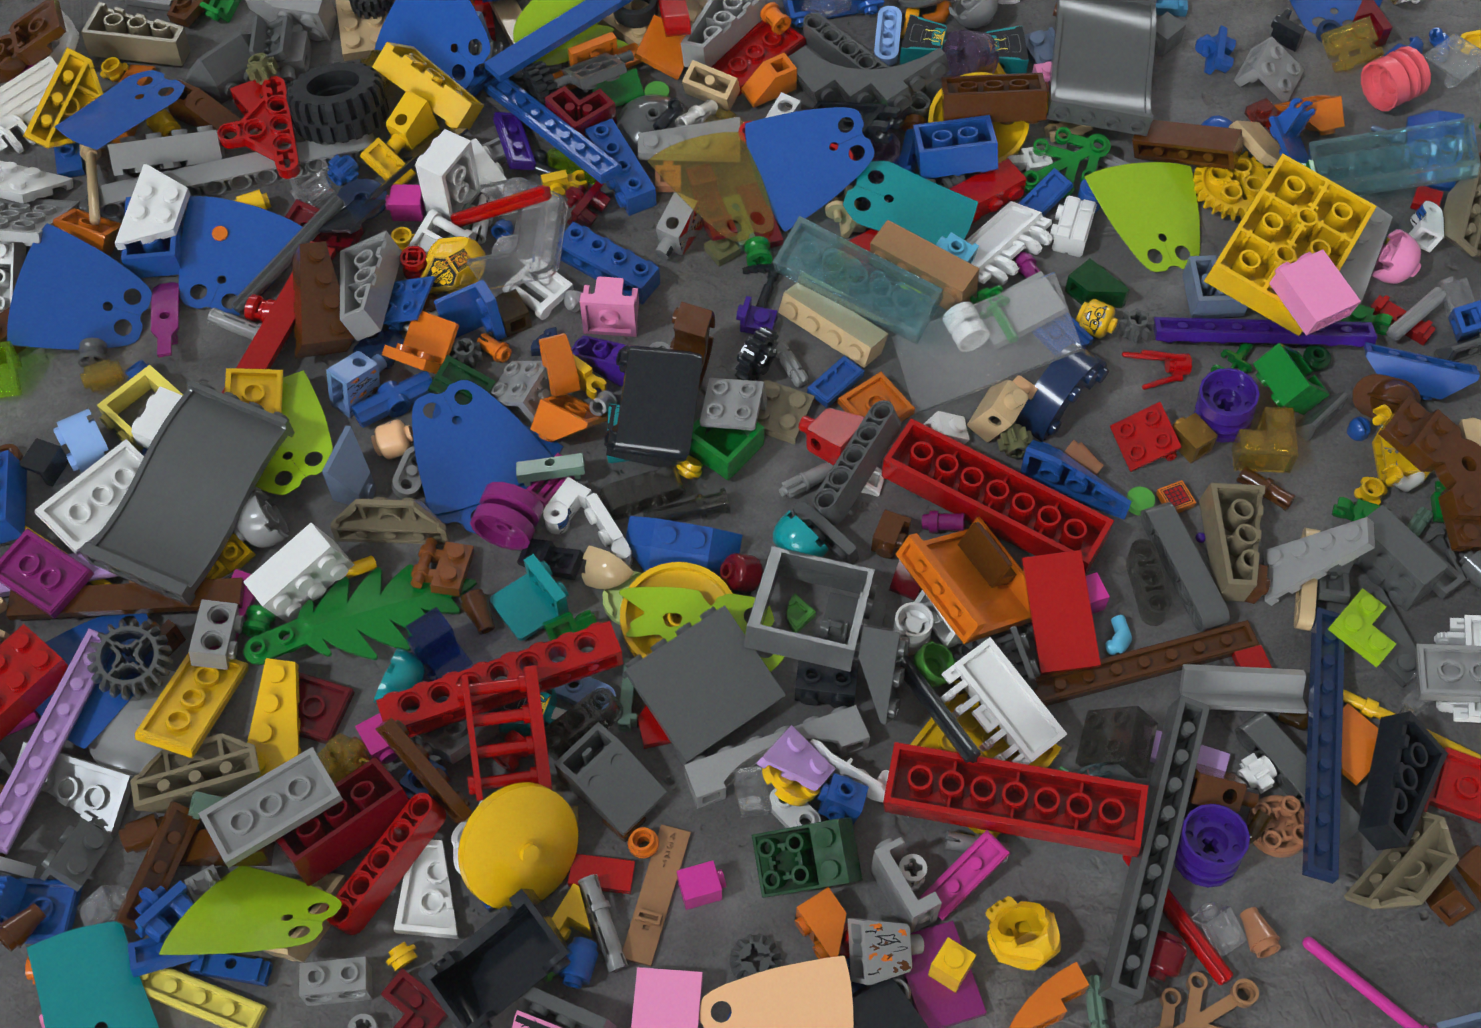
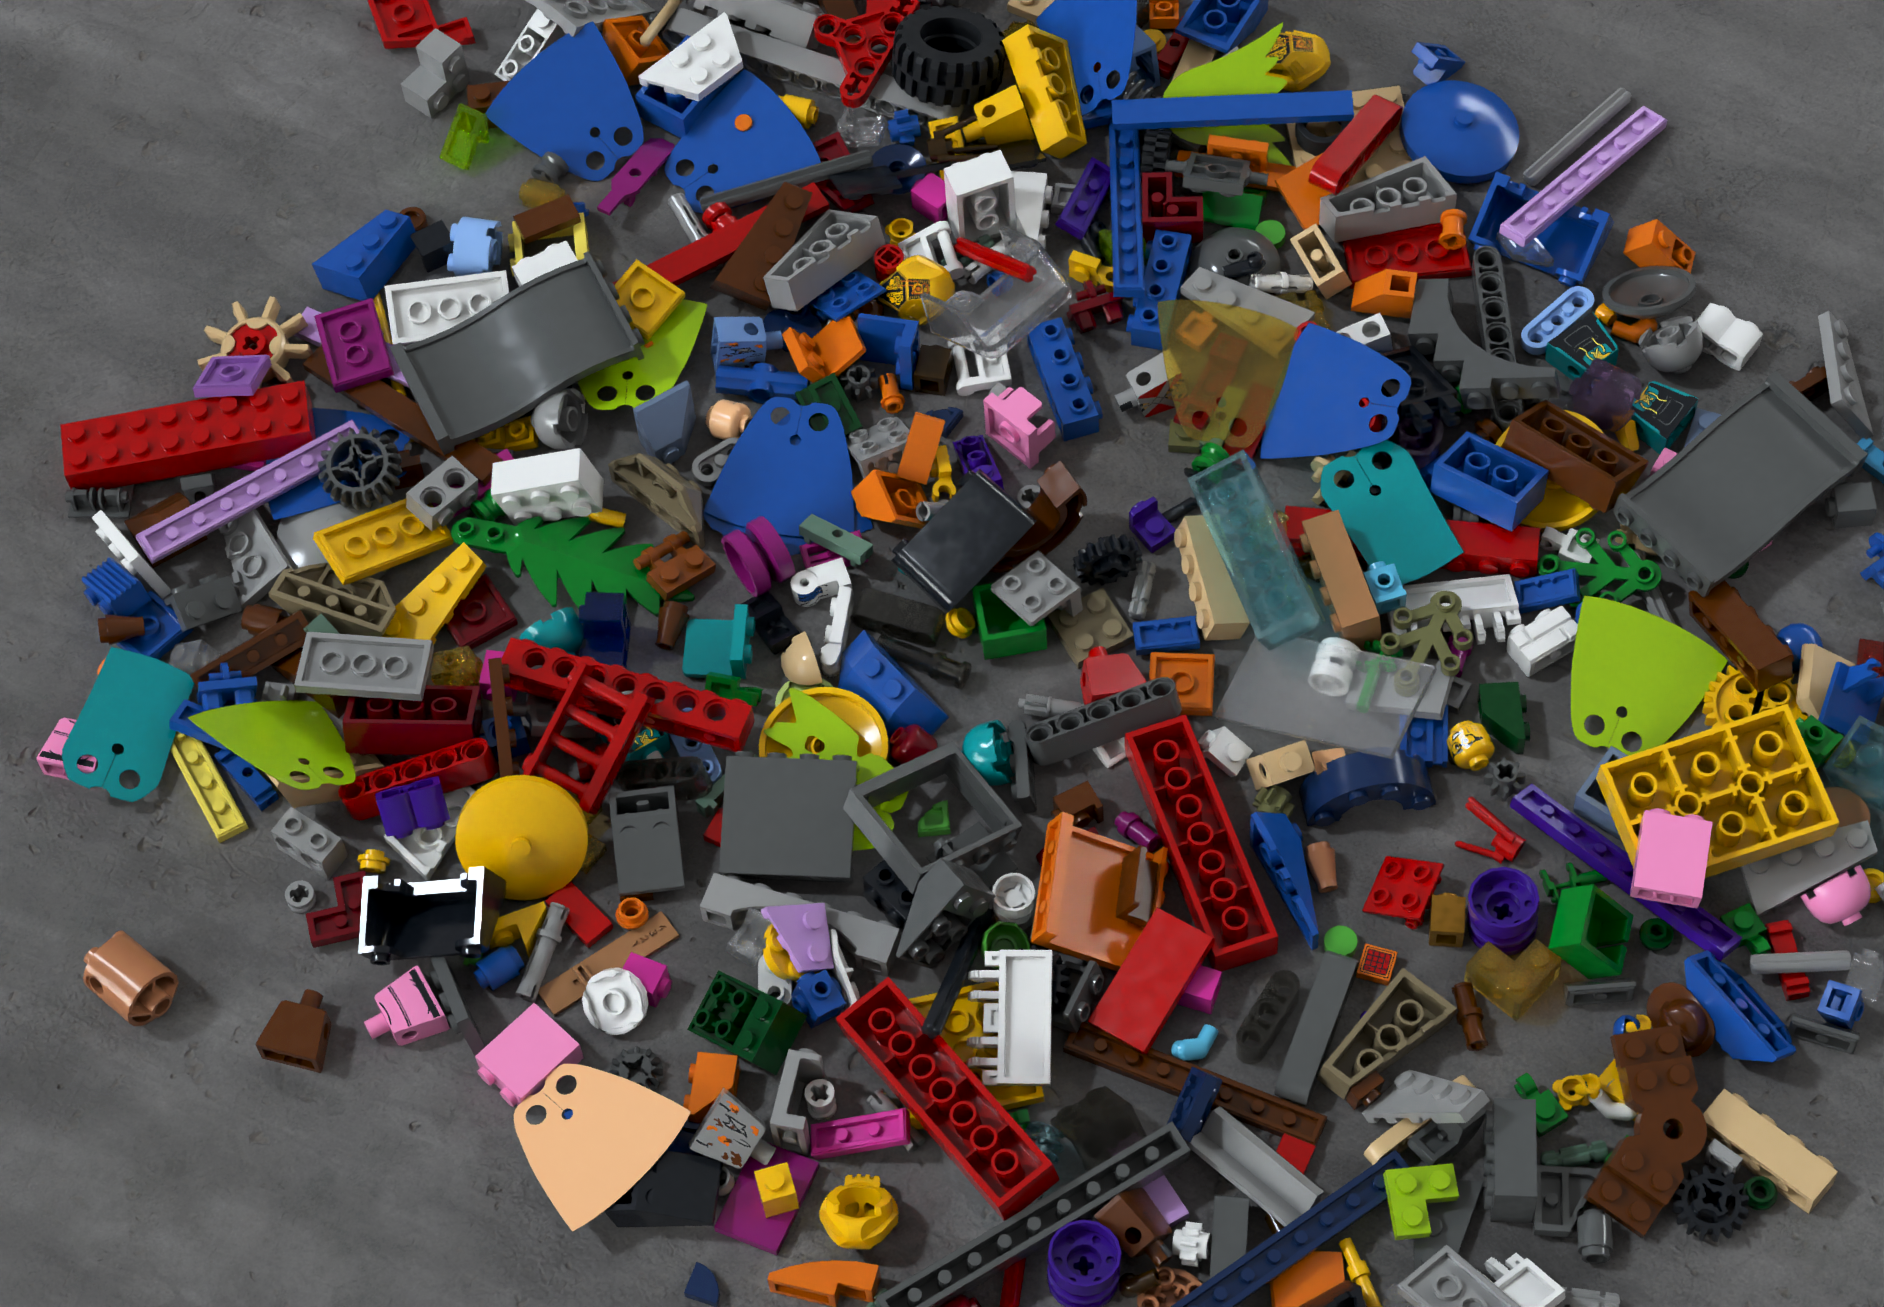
camera: 45 degrees right, 0 degrees up
(125, 385) = (547, 219): none -> reddish brown tile
(389, 162) = (943, 150): none -> dark brown plant
(405, 888) = (412, 807): none -> dark purple brick
(696, 917) = (615, 1001): none -> white tile
(1011, 264) = (1431, 635): none -> olive plant
(1169, 673) = (1194, 1102): none -> dark blue bracket

